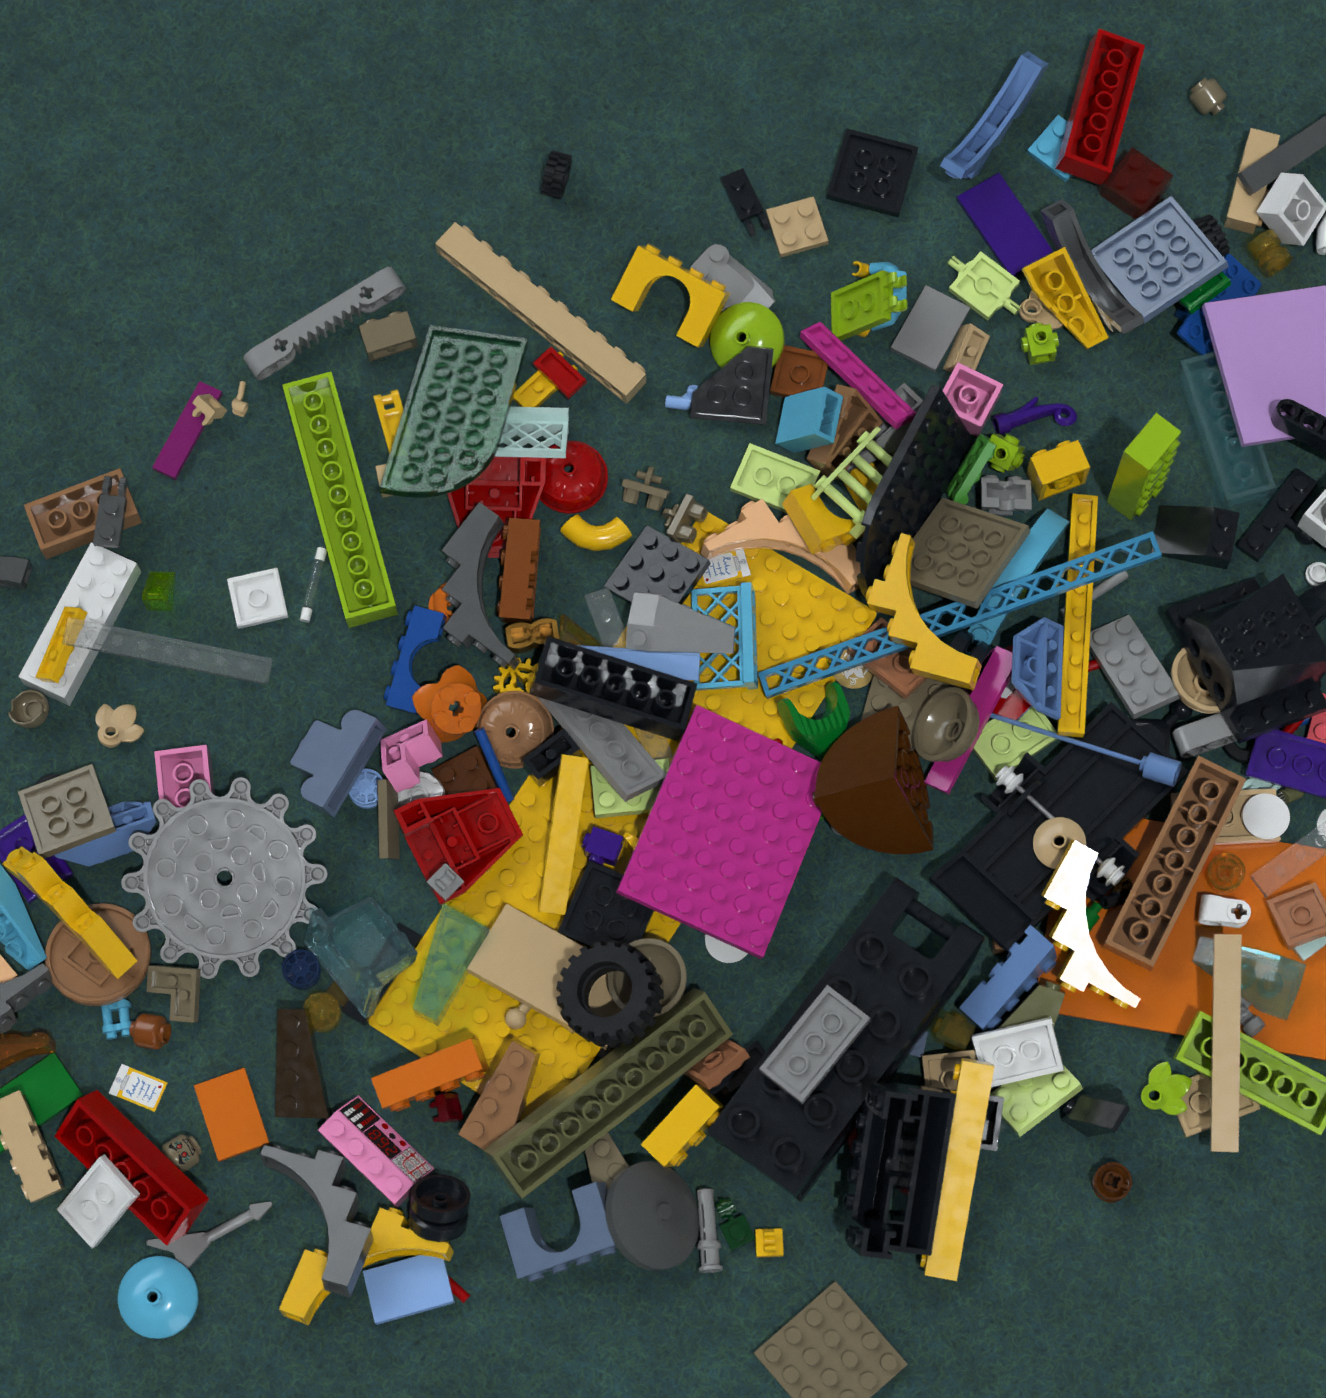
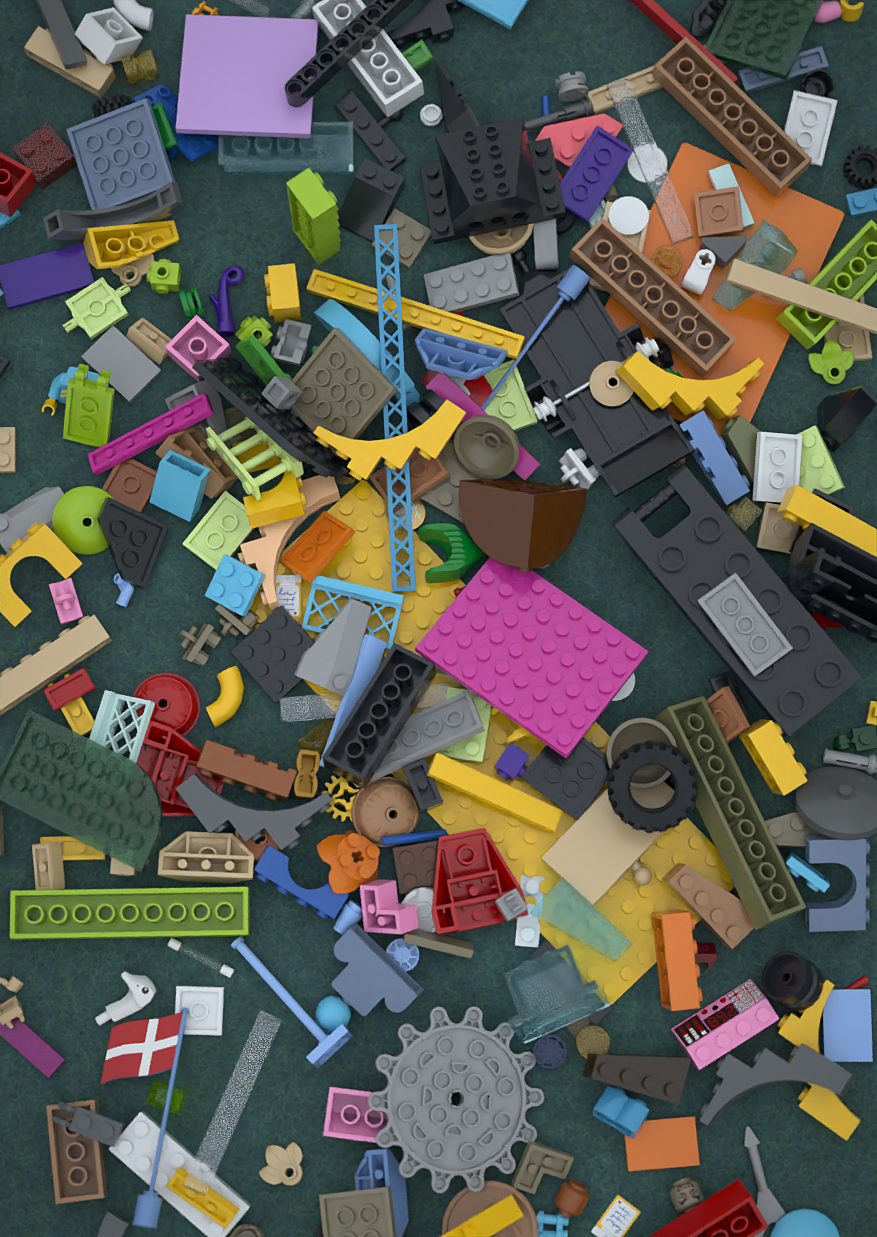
camera: 80 degrees left, 5 degrees up
(201, 551) = (139, 1051): none -> flag
(251, 734) = (328, 1043): none -> light blue tile
(254, 1060) = (620, 1111): none -> dark azure brick
(259, 532) = (139, 995): none -> white animal
(285, 734) = (332, 1013): none -> medium azure hair
(368, 405) = (48, 866): none -> tan slope
(393, 720) = (349, 915): none -> light blue cone
(416, 557) = (206, 858): none -> tan wedge
(426, 914) = (528, 926): none -> white plate
(561, 1205) = (799, 867): none -> medium azure plate
(653, 343) = (66, 601): none -> bright pink hips
(716, 505) = (235, 585): none -> medium azure plate
(783, 579) = (317, 547): none -> orange tile
(941, 494) = (281, 392): none -> light grey brick
(952, 834) = (576, 471): none -> white hips
(1017, 379) = (189, 304): none -> green wheel
(1163, 582) = (411, 238): none -> dark tan plate
(1260, 932) = (723, 248): none -> dark grey slope

